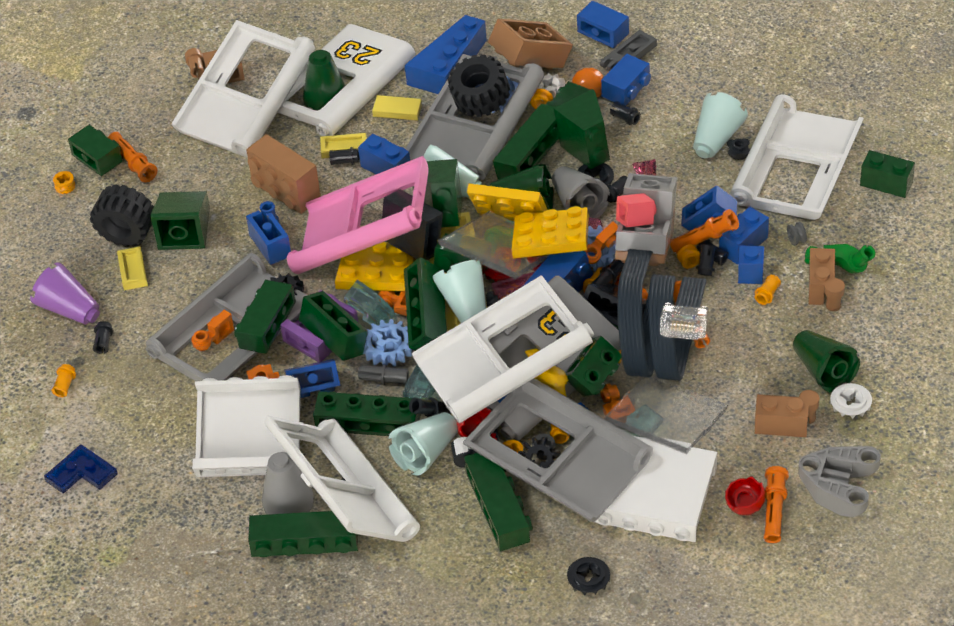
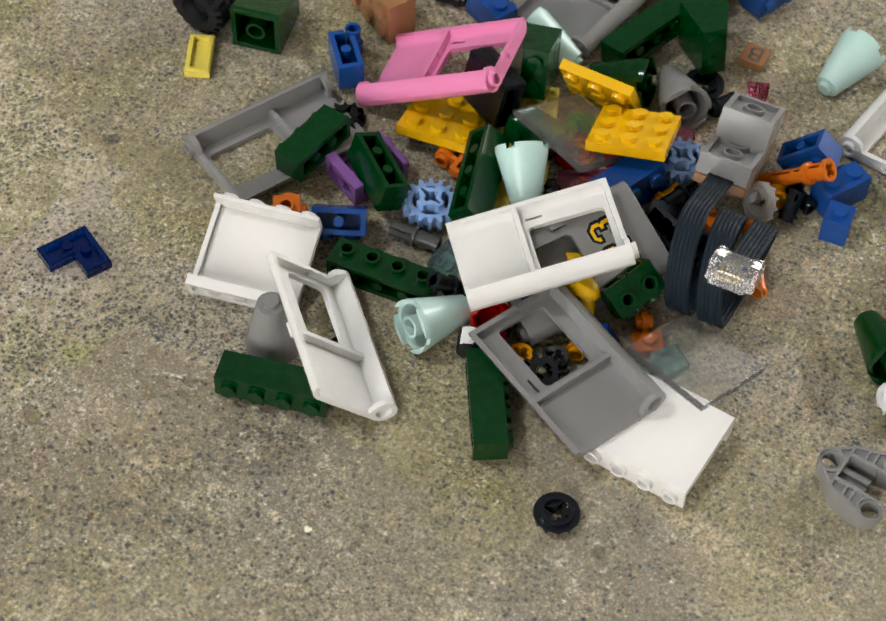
camera: 10 degrees right, 5 degrees up
(63, 294) = (120, 66): medium lavender cone -> none
(66, 374) = (94, 149): light orange pin -> none
(102, 331) = (147, 114): black pin -> none
(218, 329) = (262, 143): orange plate -> none
(368, 303) = (424, 158): clear light blue slope -> none
(603, 239) = (686, 155): orange plate -> none
(629, 115) = (761, 29): black pin -> none
(632, 141) = (754, 57): none -> medium nougat tile
(635, 210) = (729, 133): coral brick -> none
(674, 256) = (758, 192): none -> white gear
(738, 148) = (864, 94): black plate -> none
(745, 496) = (750, 474): red hair -> none
(765, 293) = (841, 258): light orange pin -> none
(775, 495) = (783, 481): orange pin -> none
(785, 414) = (822, 396): medium nougat hinge -> none

